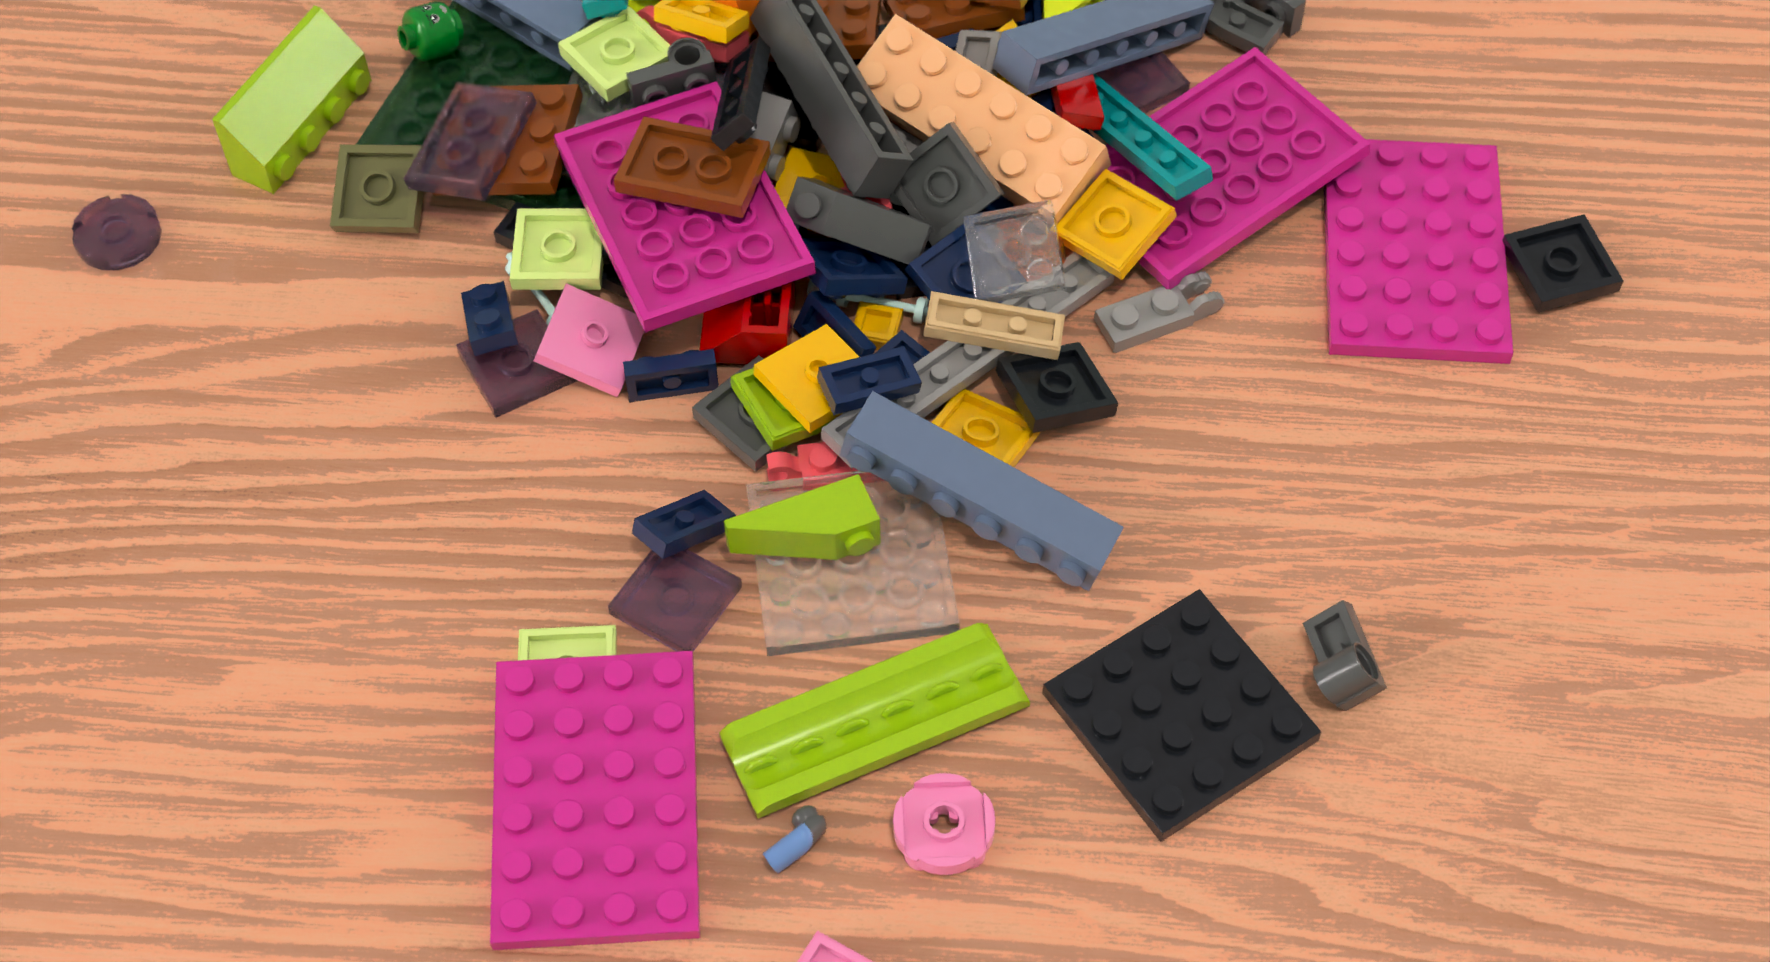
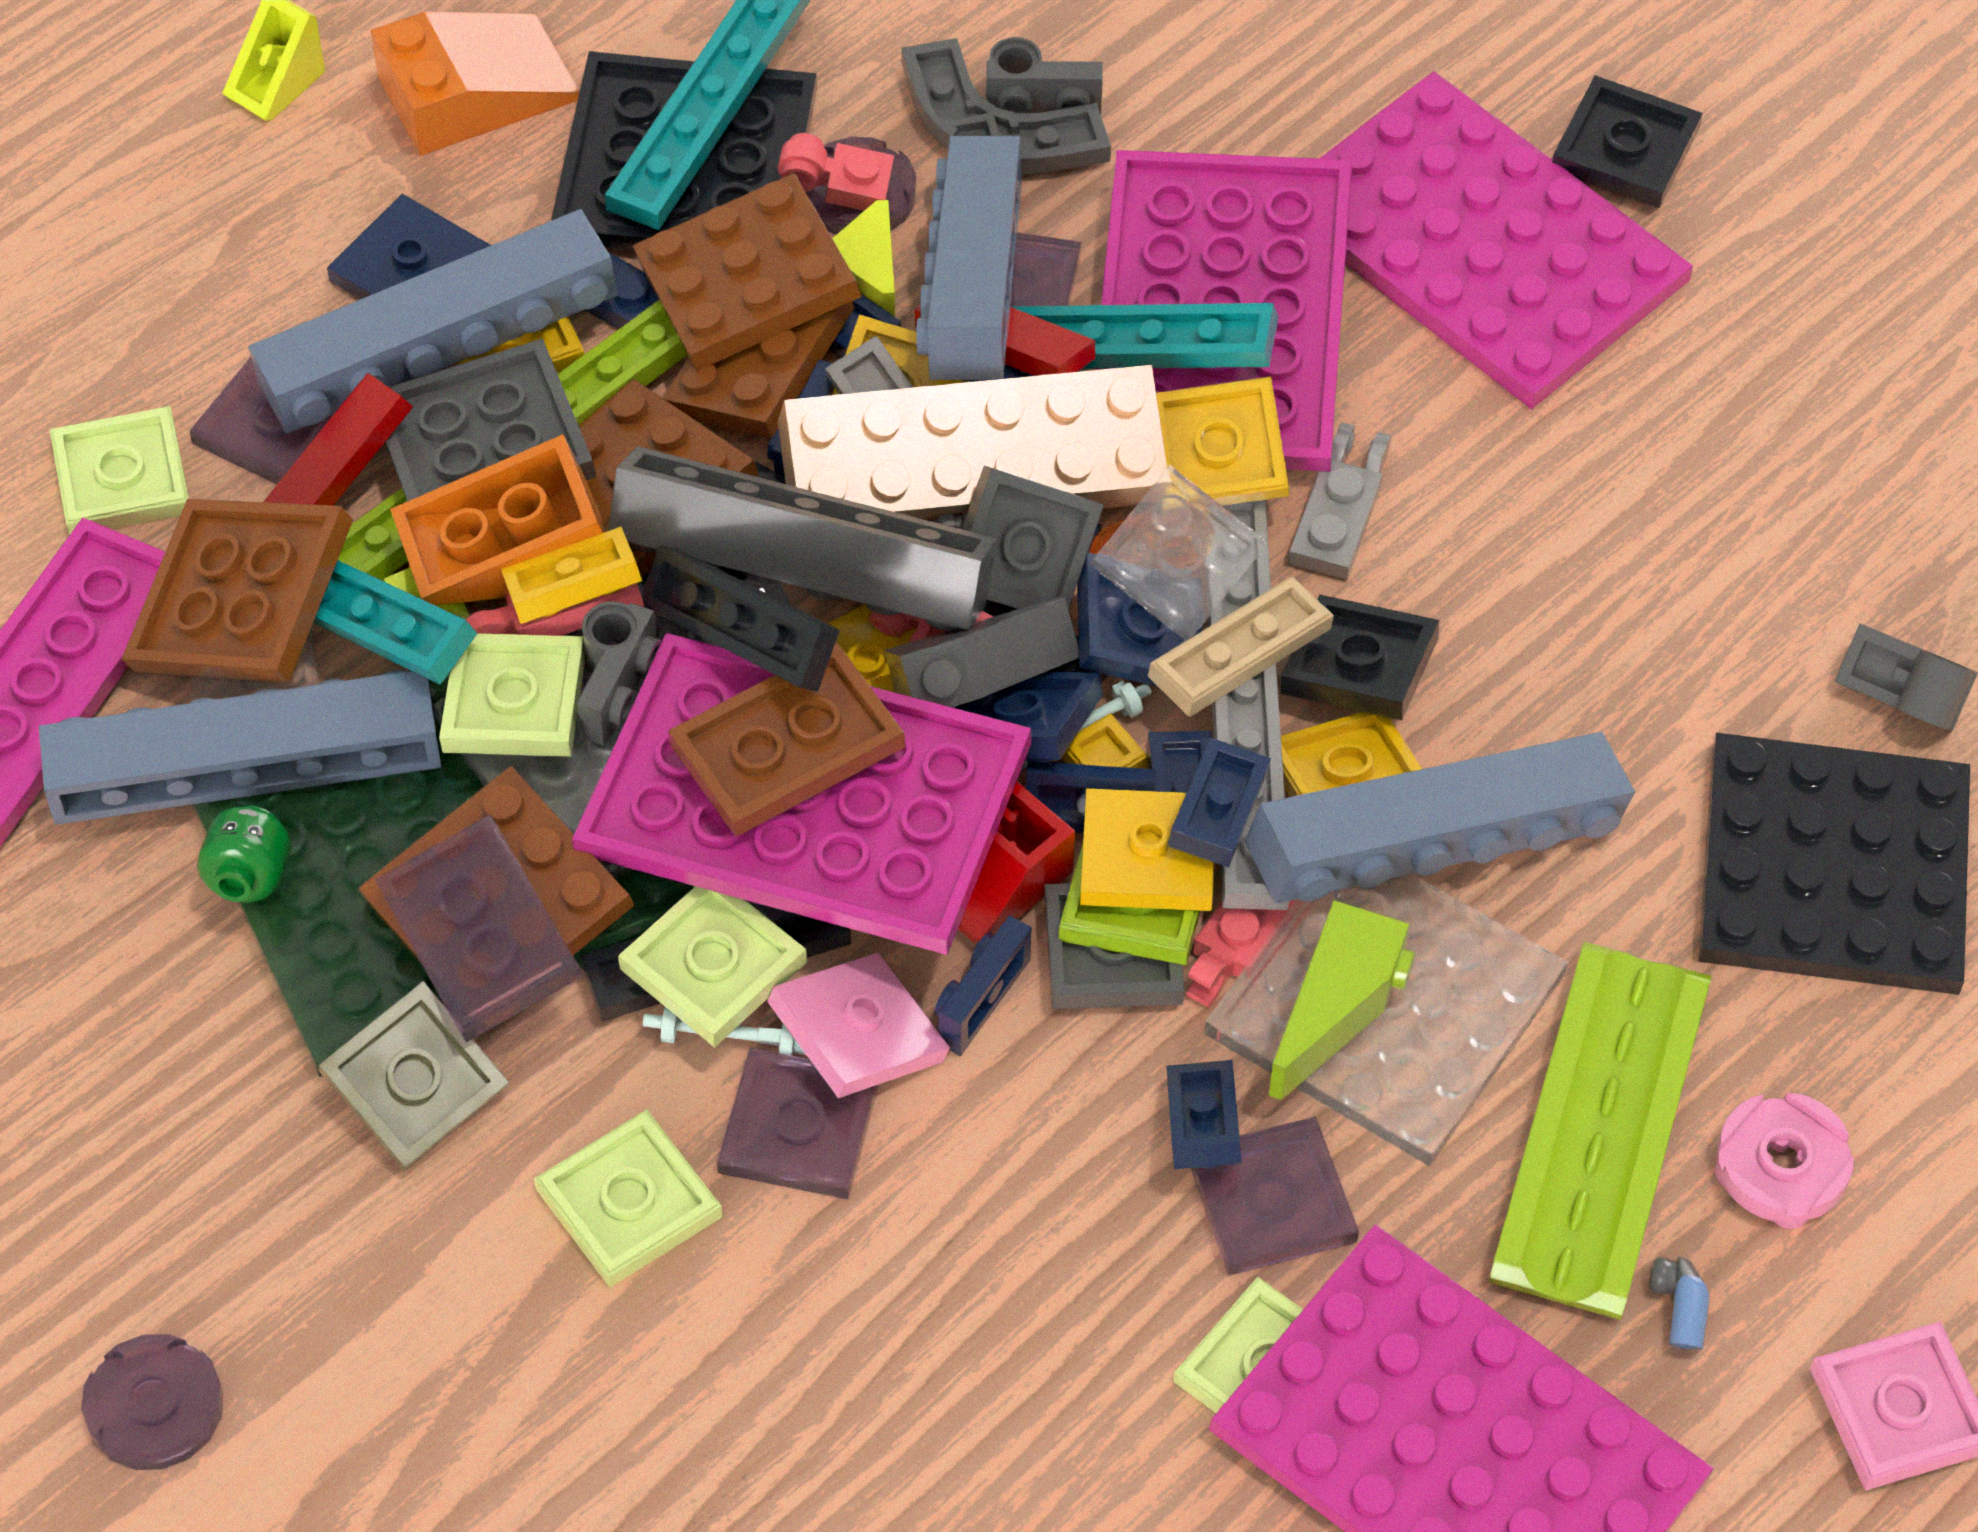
camera: 50 degrees left, 0 degrees up
(291, 101) = (191, 1073): lime slope -> none
(404, 327) = (628, 1198): none -> yellowish green tile
(489, 318) = (722, 1100): dark blue plate -> none

